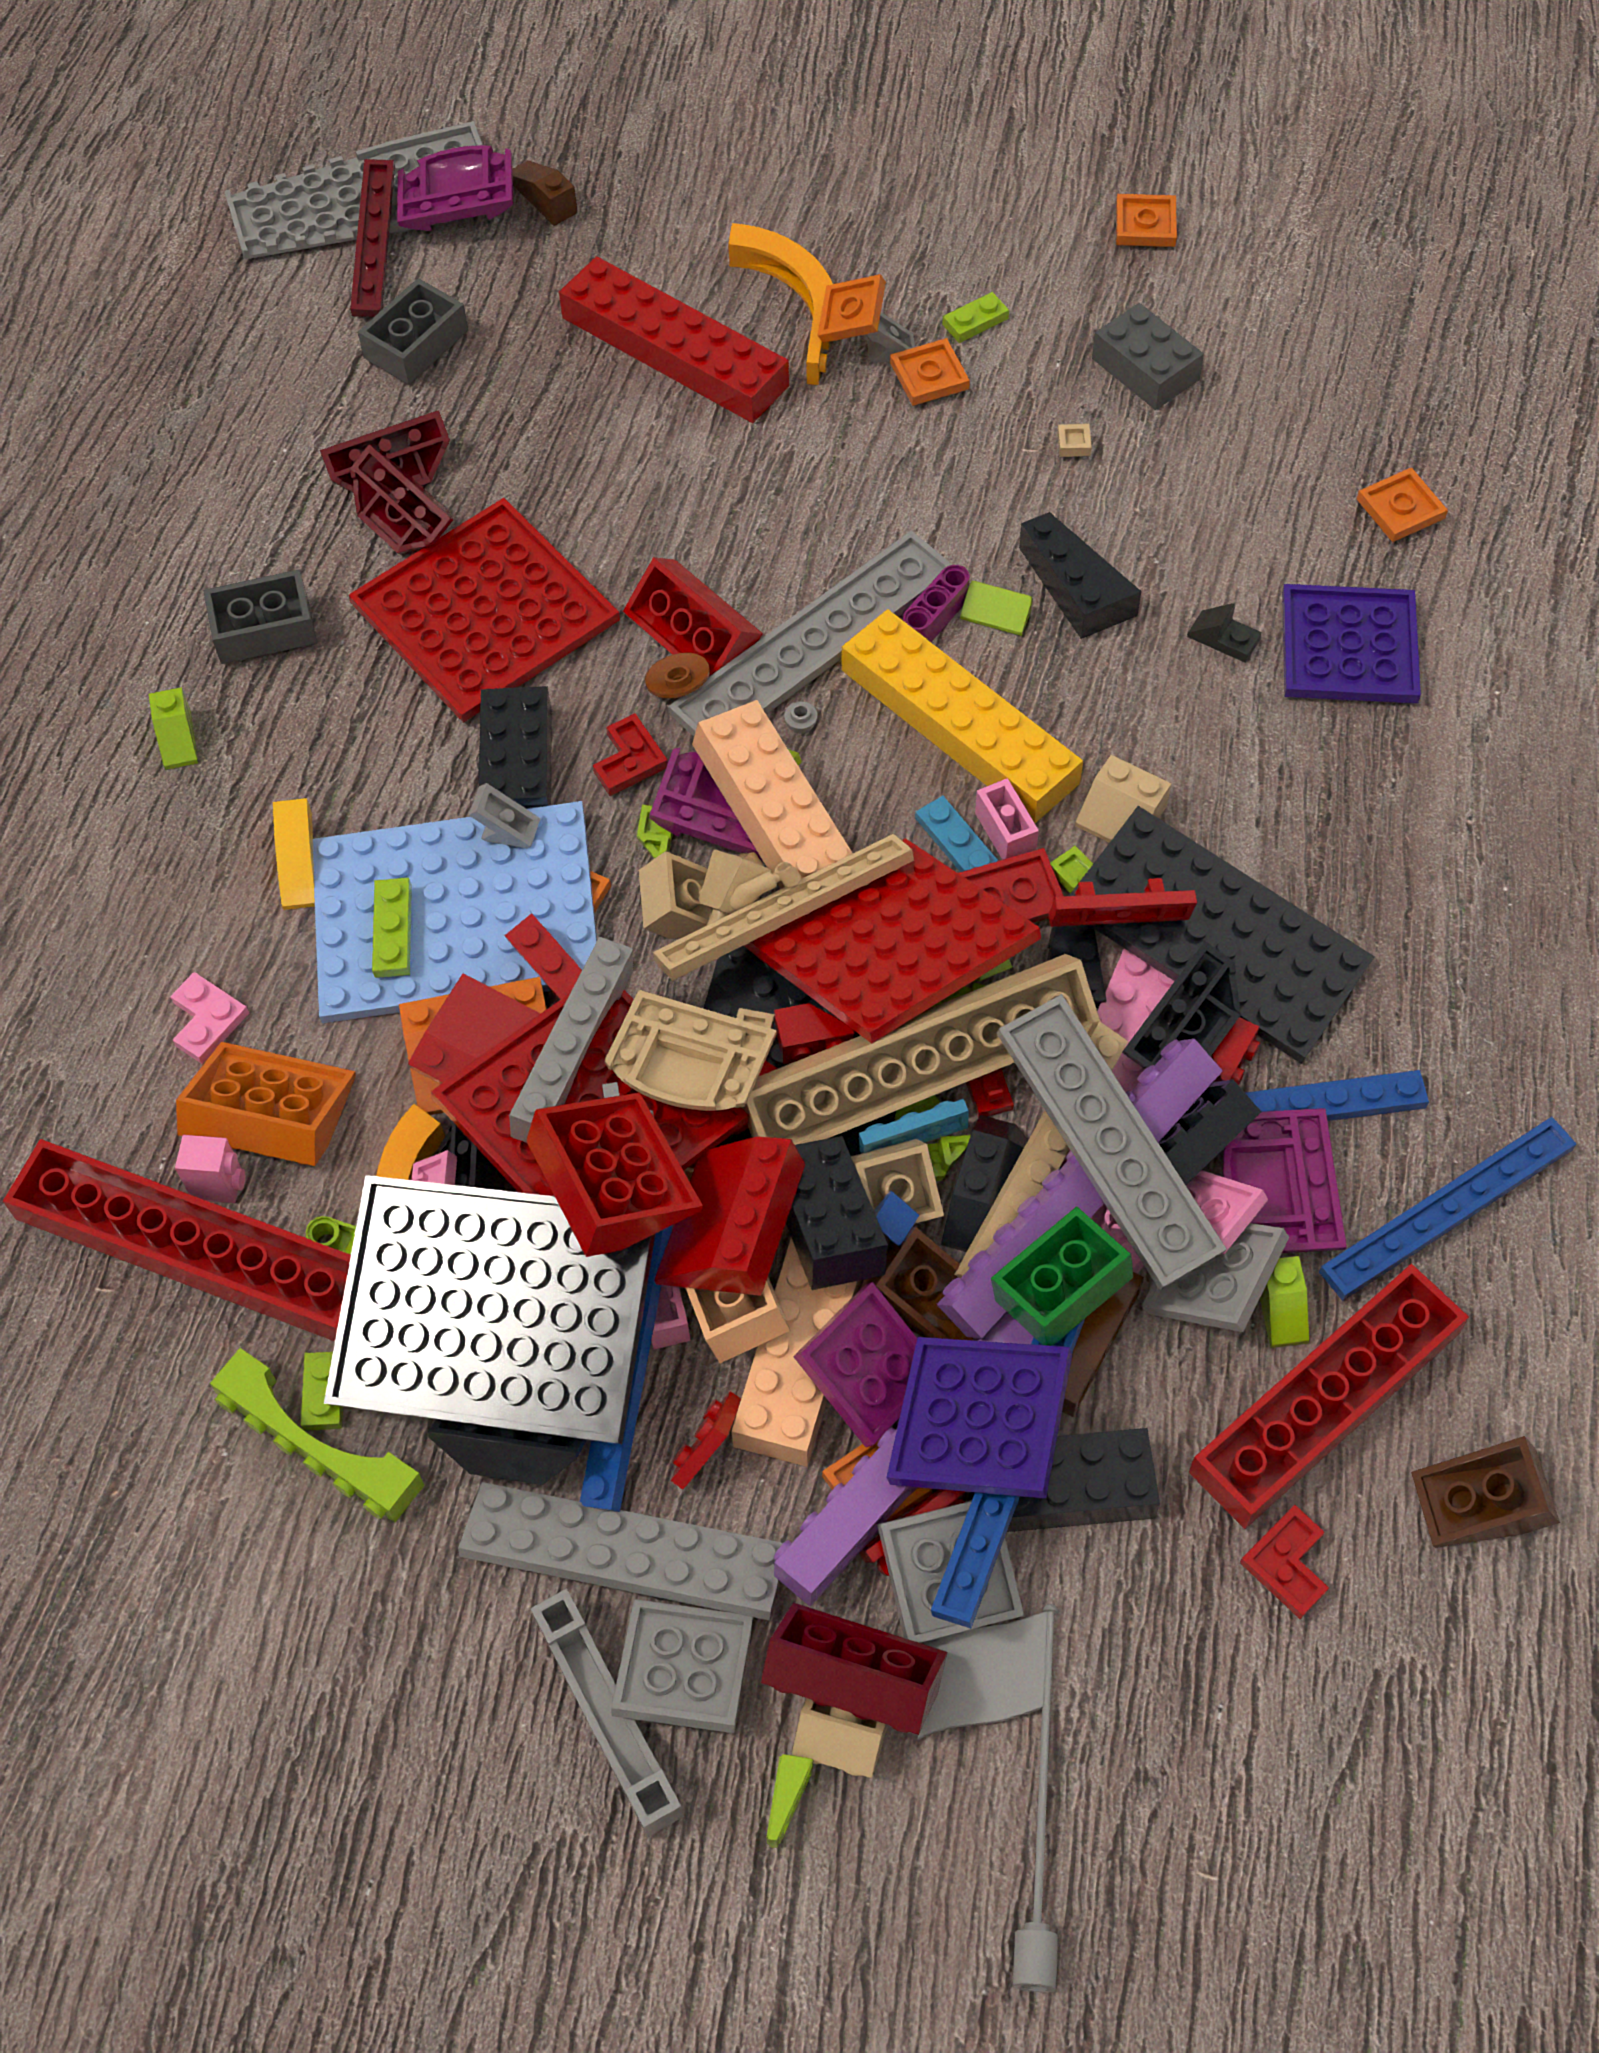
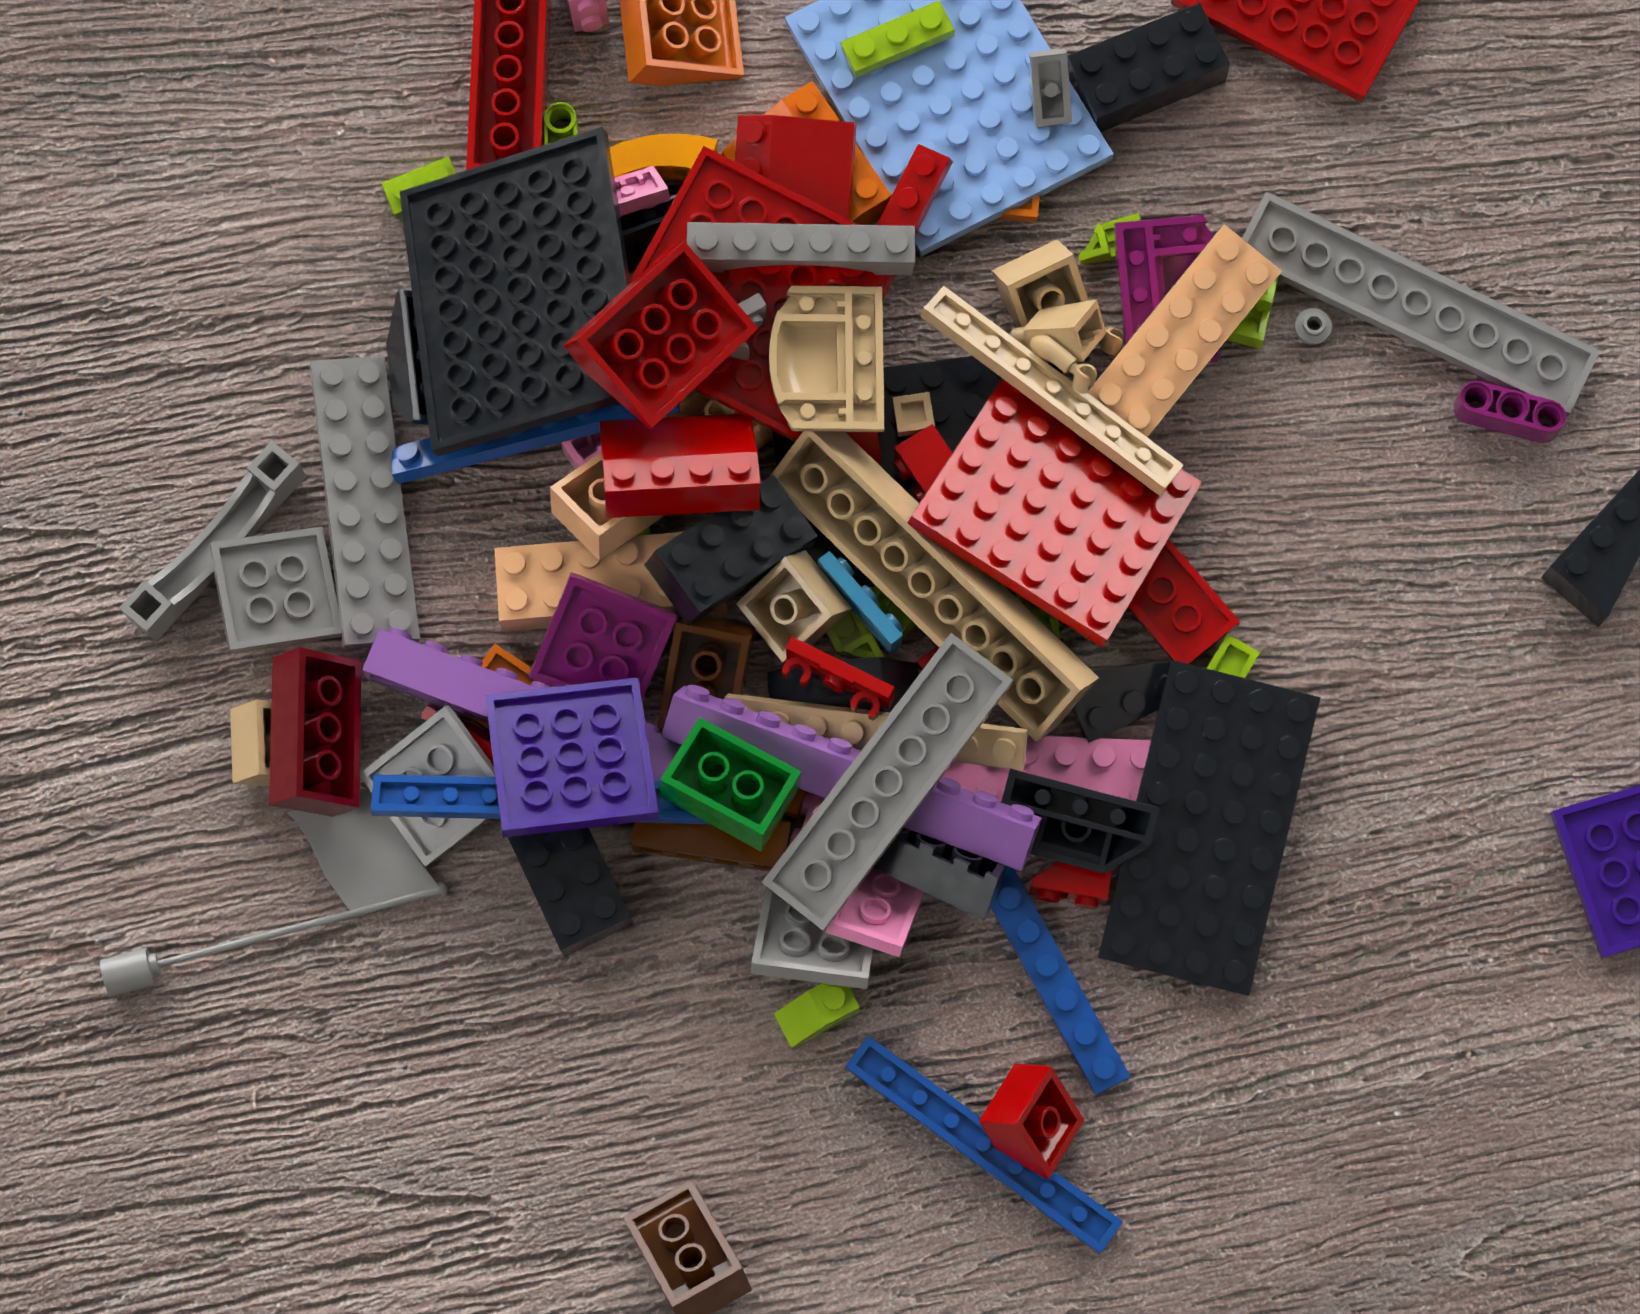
camera: 70 degrees right, 15 degrees up
(382, 1483) = (396, 125): lime arch -> none
(636, 756) = (1191, 187): red plate -> none
(677, 675) = (1308, 185): dark orange dish -> none
(688, 615) = (1388, 170): red slope -> none
(710, 1435) = (484, 531): red plate -> none
(790, 1784) = (201, 717): lime slope -> none
(895, 1218) = (752, 614): blue slope -> none
(953, 835) = (1228, 533): dark azure plate -> none
(960, 713) = (1376, 484): yellow brick -> none
(985, 1160) = (838, 676): none -> red plate
(996, 608) = (1537, 475): lime slope -> none
(1006, 820) = (1257, 573): bright pink brick -> none
(1117, 794) = (1340, 677): tan slope -> none
(1150, 906) = (1159, 684): red hinge -> none
(1219, 631) = (1607, 726): pearl dark grey slope -> none
(1278, 1564) = (555, 1077): red plate -> none
(1294, 1166) = (947, 975): magenta slope -> none
(1327, 1395) = (732, 1077): red brick -> none
(1438, 1154) = (1032, 1118): none -> red slope

